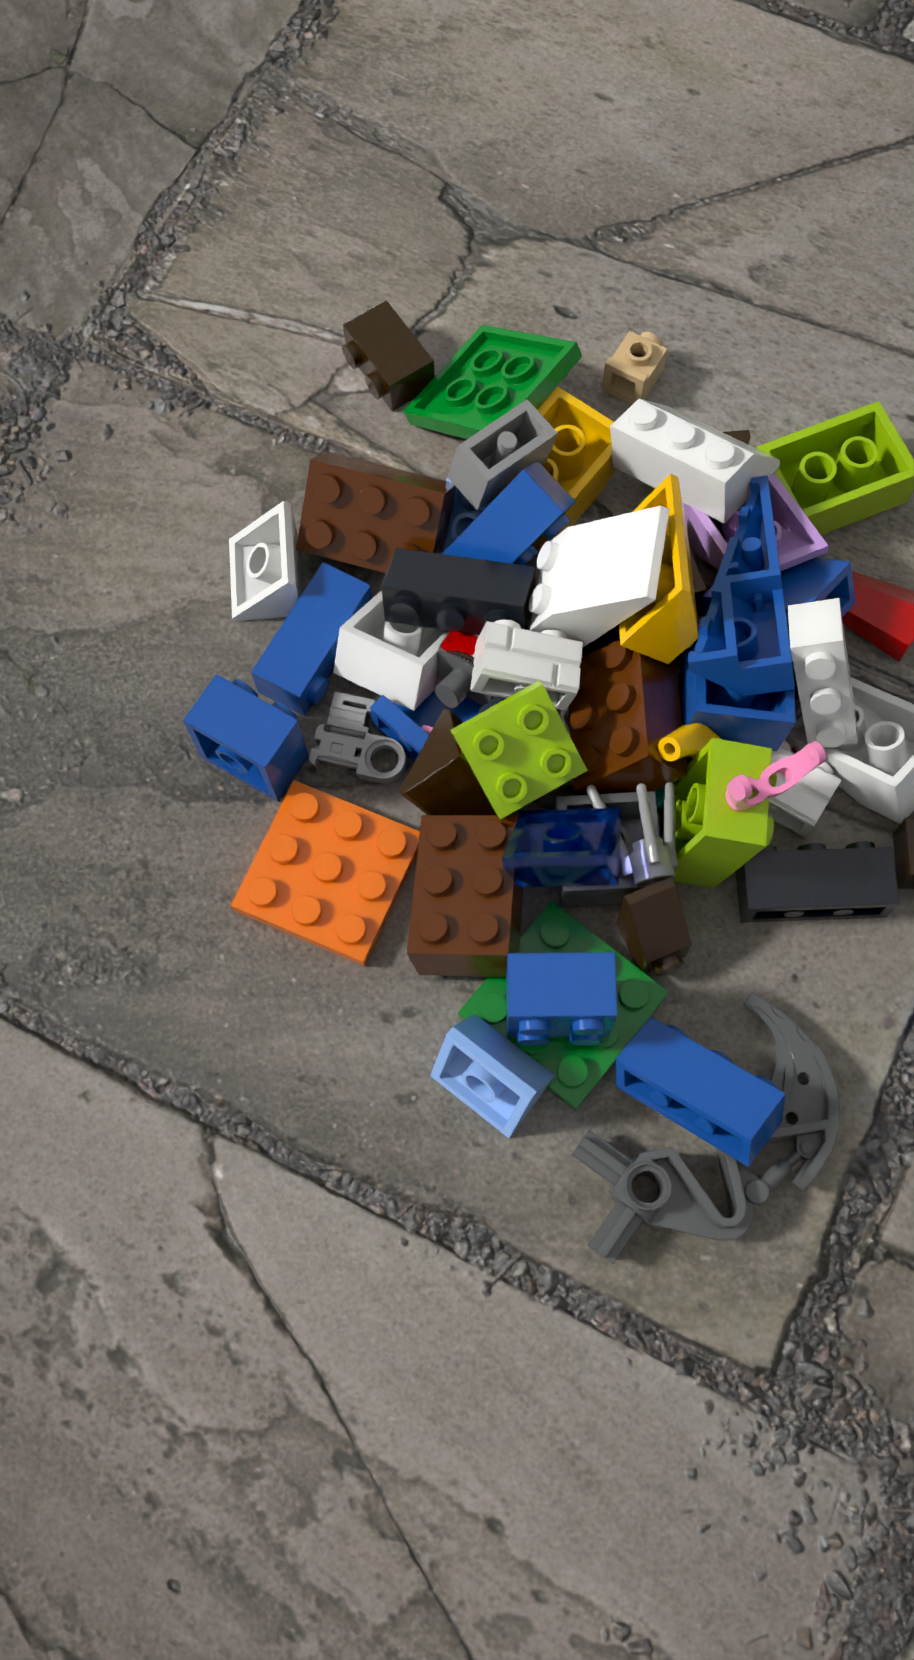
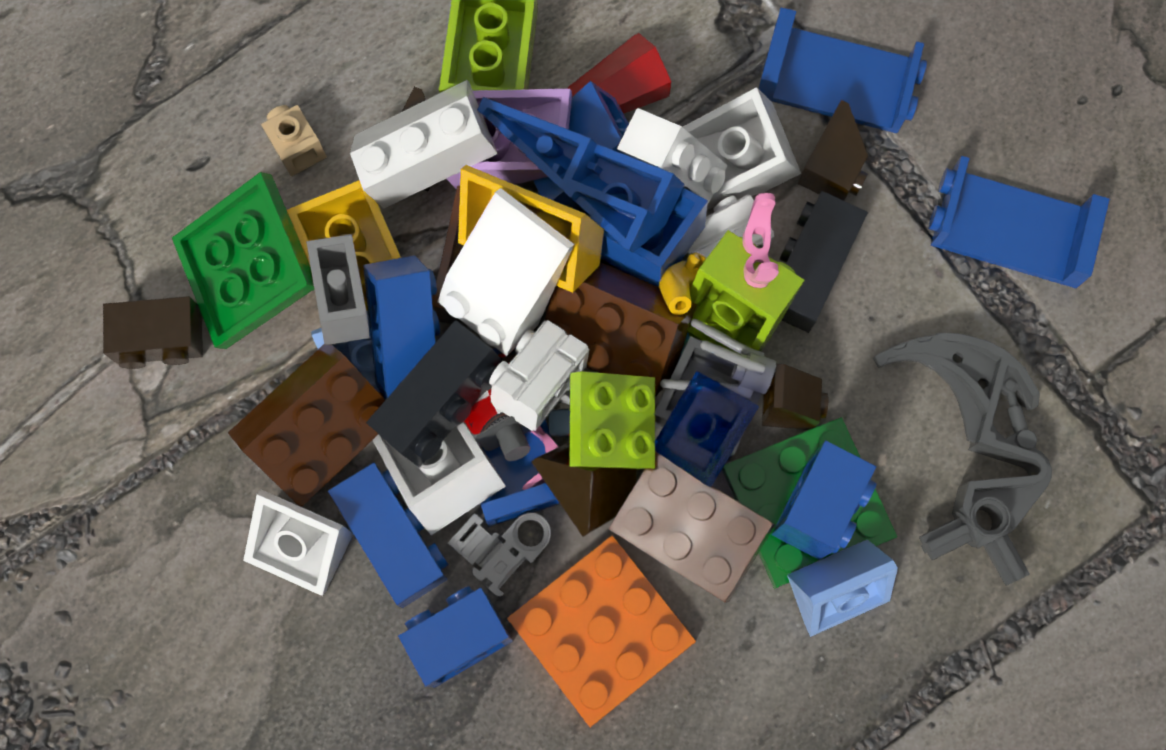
camera: 65 degrees left, 5 degrees up
(700, 1090) = (938, 436): blue brick -> none

